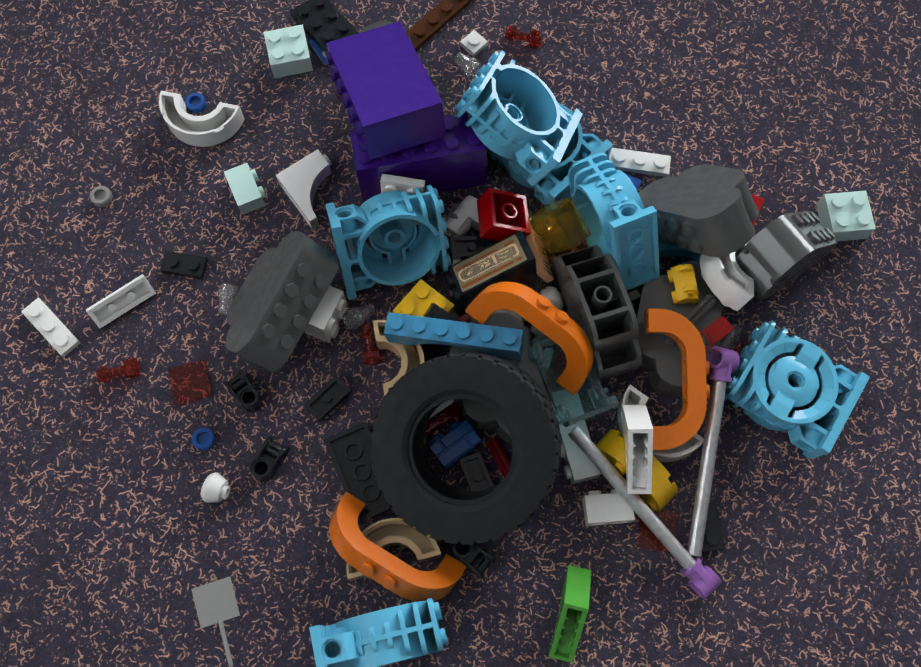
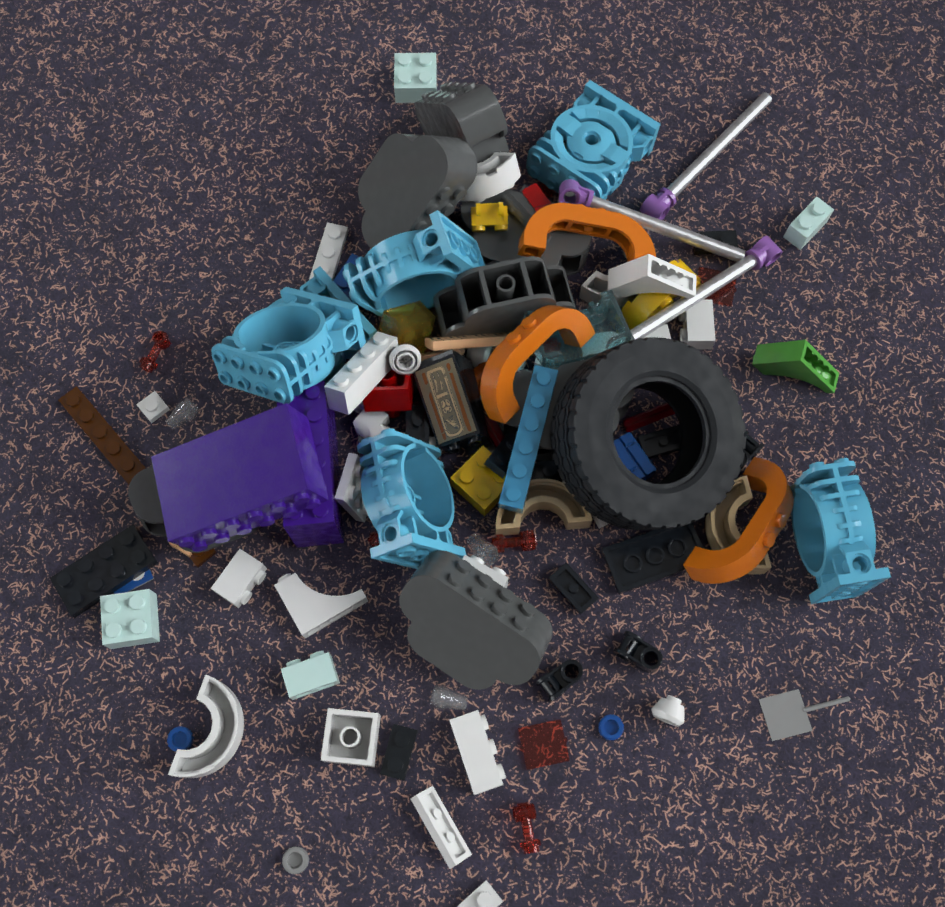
camera: 85 degrees left, 0 degrees up
(180, 324) = (477, 752): none -> white brick
(191, 223) = (350, 737): none -> white brick
(325, 125) = (239, 578): none -> white brick
(504, 185) = (360, 374): none -> white brick
(523, 220) = (405, 359): none -> white cone
(551, 275) = (466, 341): none -> light nougat tile
(739, 463) = (660, 204): none -> flat silver piece
(745, 628) = (808, 223): none -> light aqua brick

